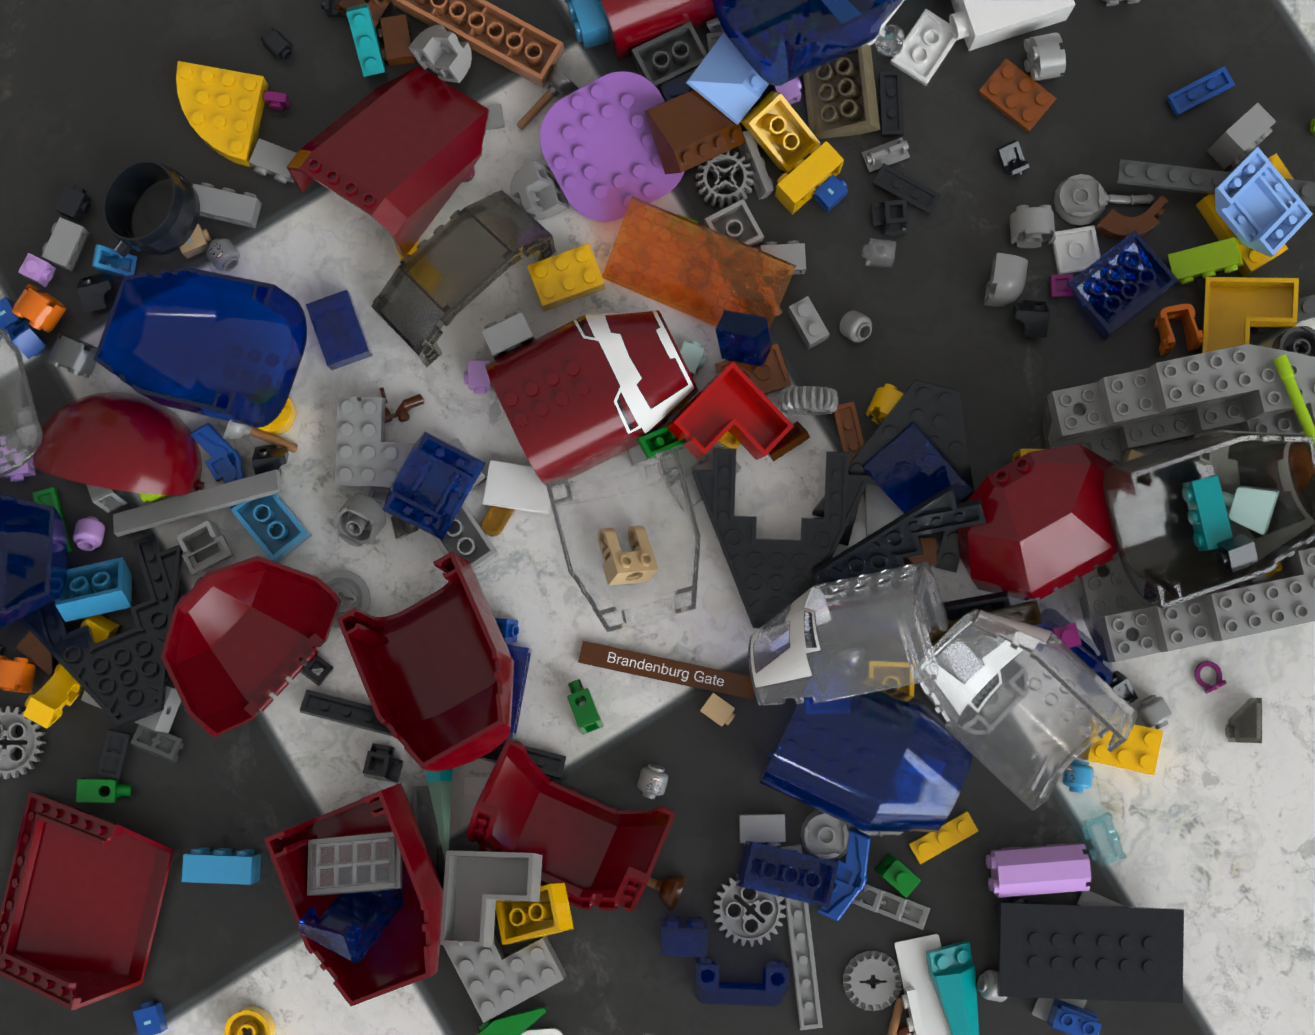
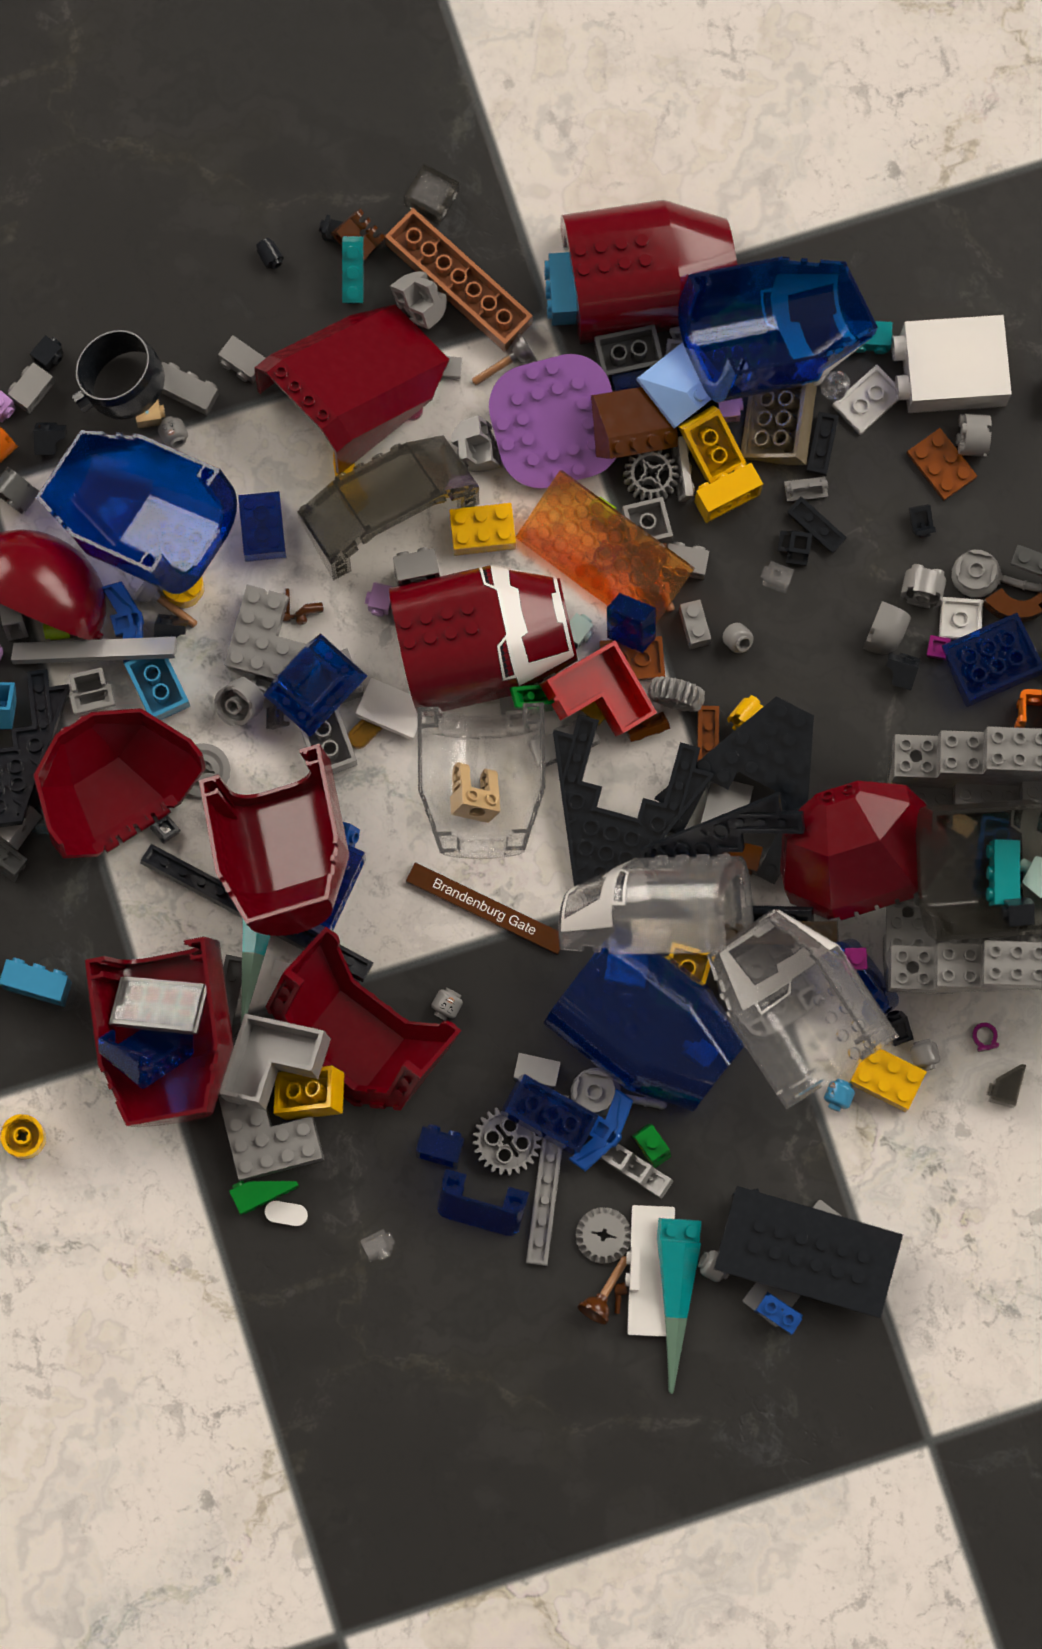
camera: 10 degrees right, 5 degrees down
(110, 262) = (70, 414): dark azure slope -> none
(223, 108) = (206, 299): yellow brick -> none
(277, 100) = (256, 304): magenta plate -> none
(382, 765) = (203, 925): black brick -> none
(397, 39) = (381, 276): reddish brown brick -> none
(586, 715) = (401, 922): green torso -> none
(668, 889) = (437, 1105): reddish brown piece -> none
(718, 710) = (523, 954): tan brick -> none
(830, 193) = (745, 511): blue brick -> none
(914, 471) = (755, 774): clear blue slope -> none
(946, 837) = (701, 1122): yellow plate -> none
(1038, 870) = (780, 1168): lavender brick -> none
(1103, 839) = (849, 1158): clear light blue window -> none

